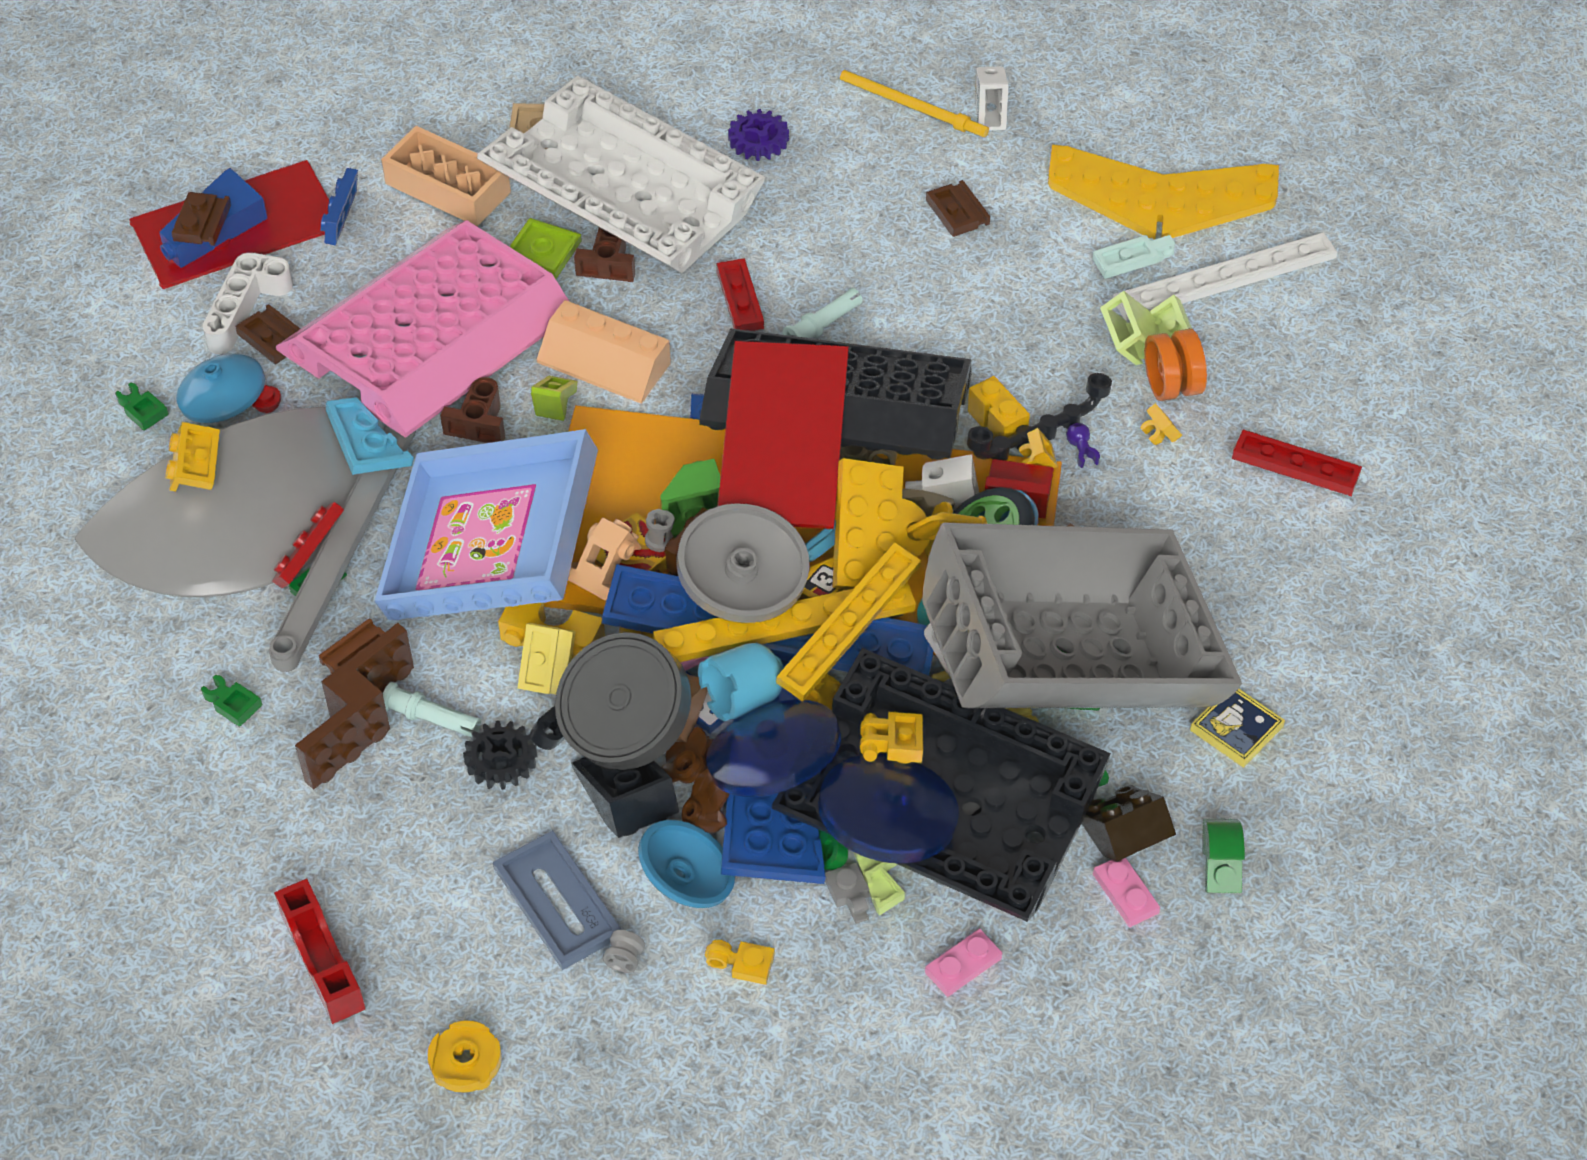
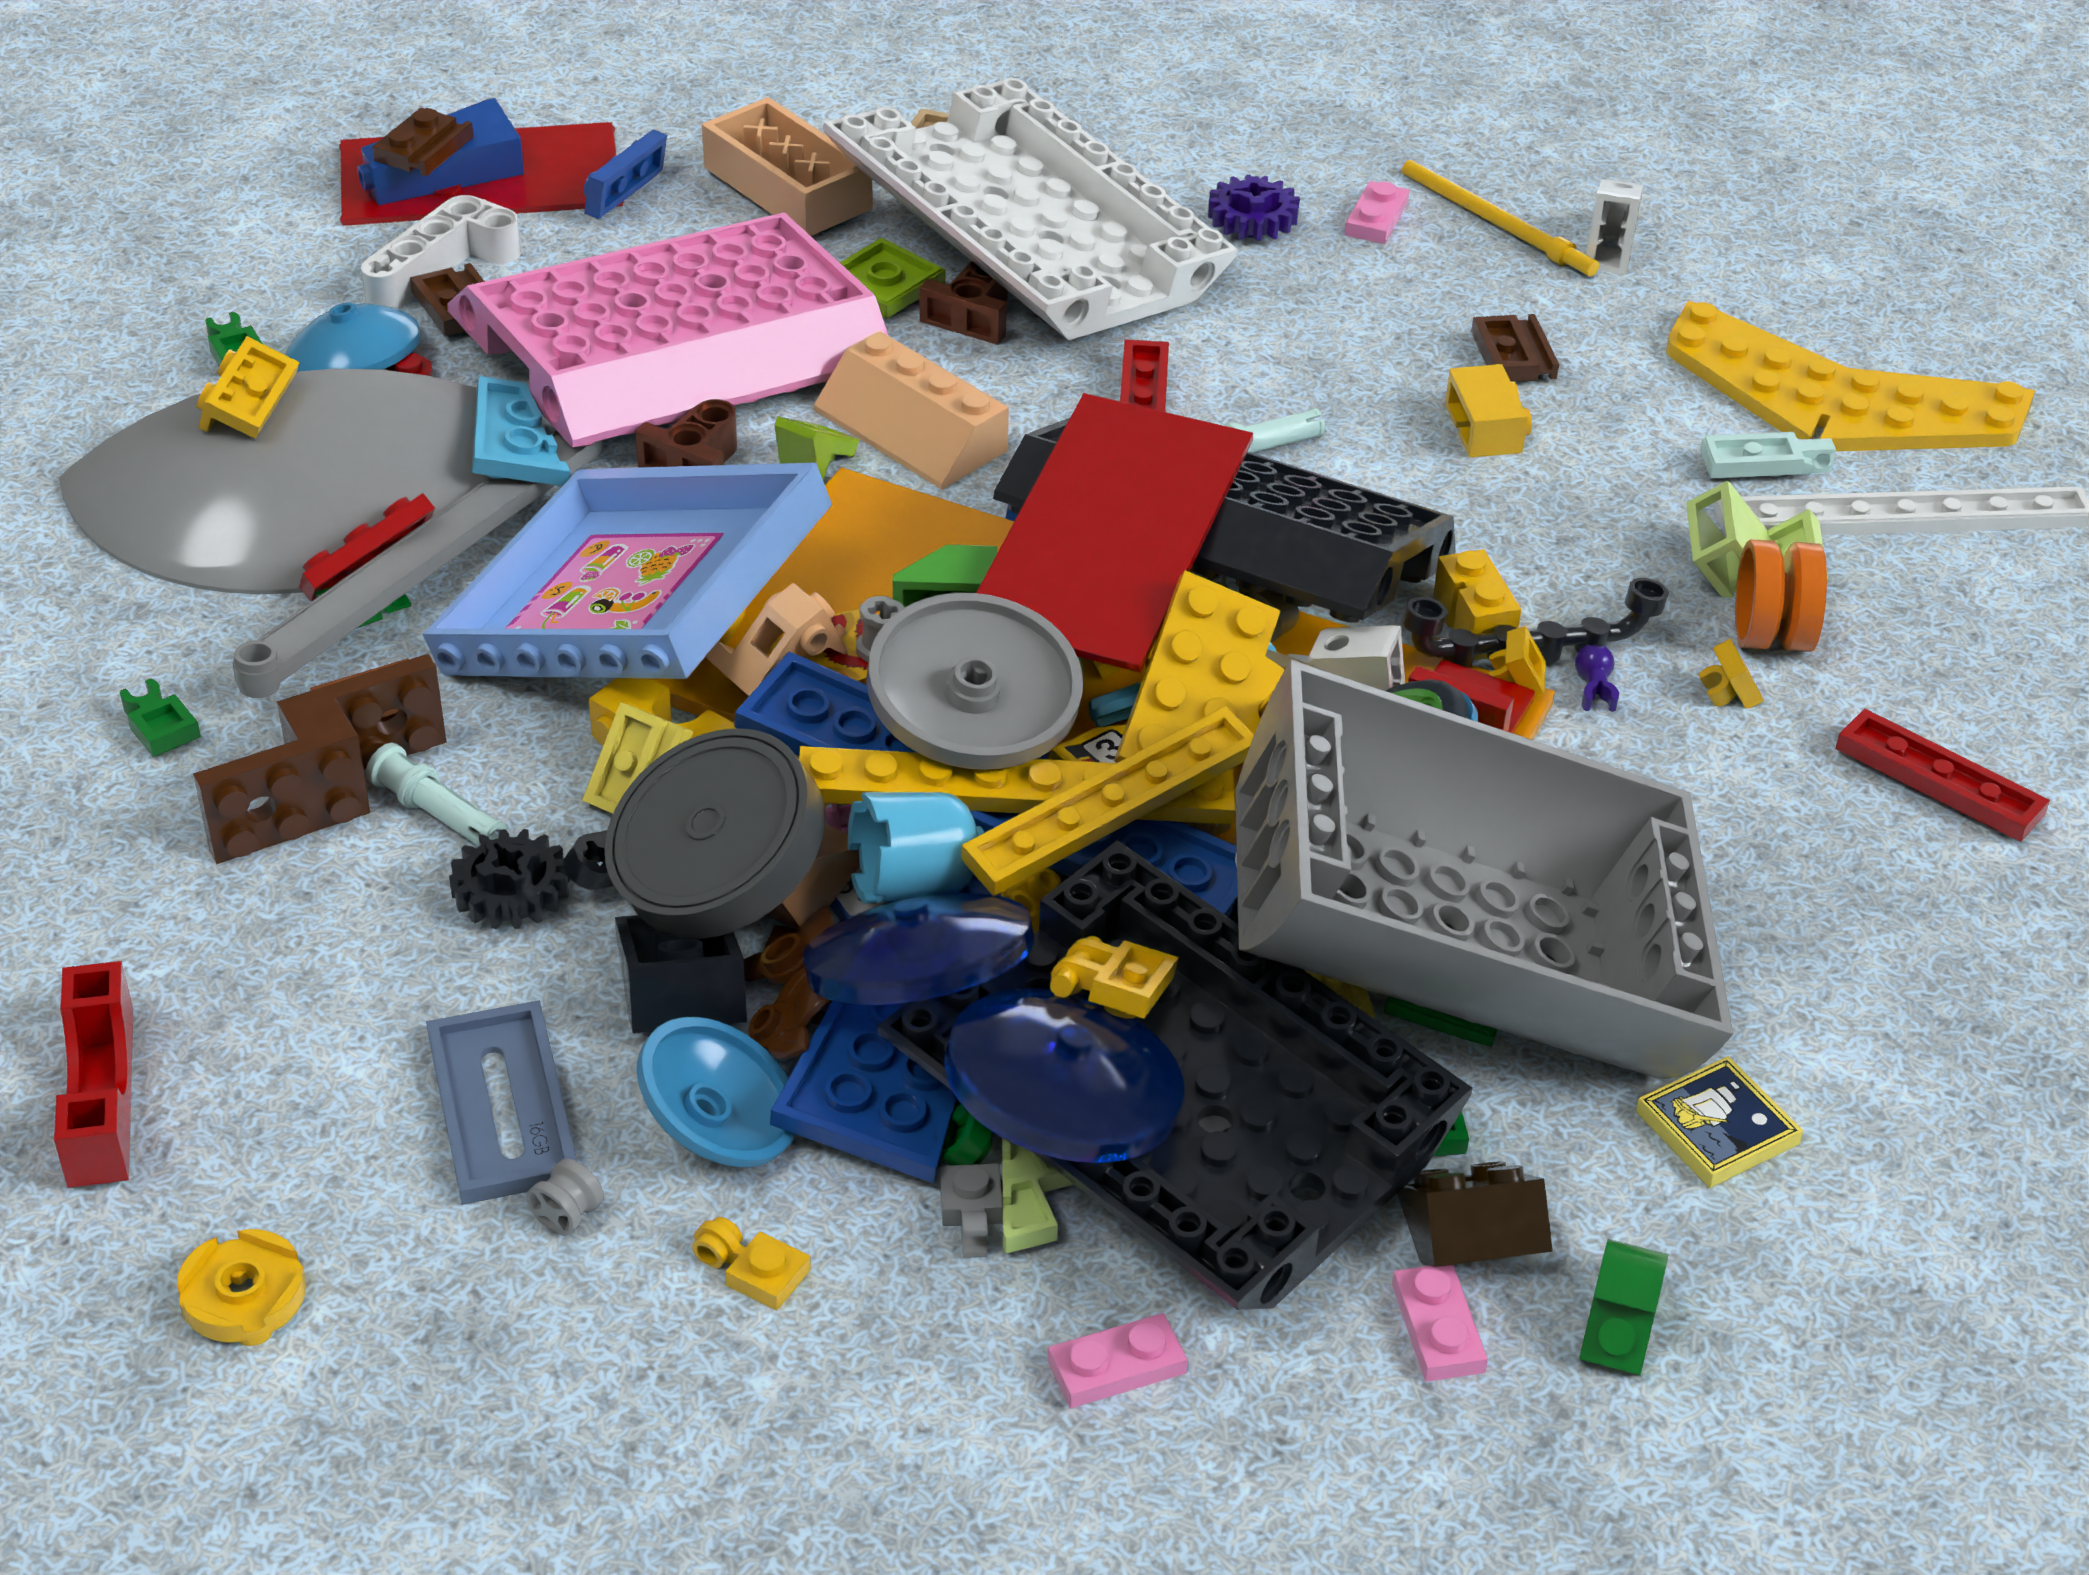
camera: 15 degrees right, 10 degrees down
(836, 117) = (1377, 212): none -> bright pink plate
(957, 257) = (1487, 410): none -> yellow piece

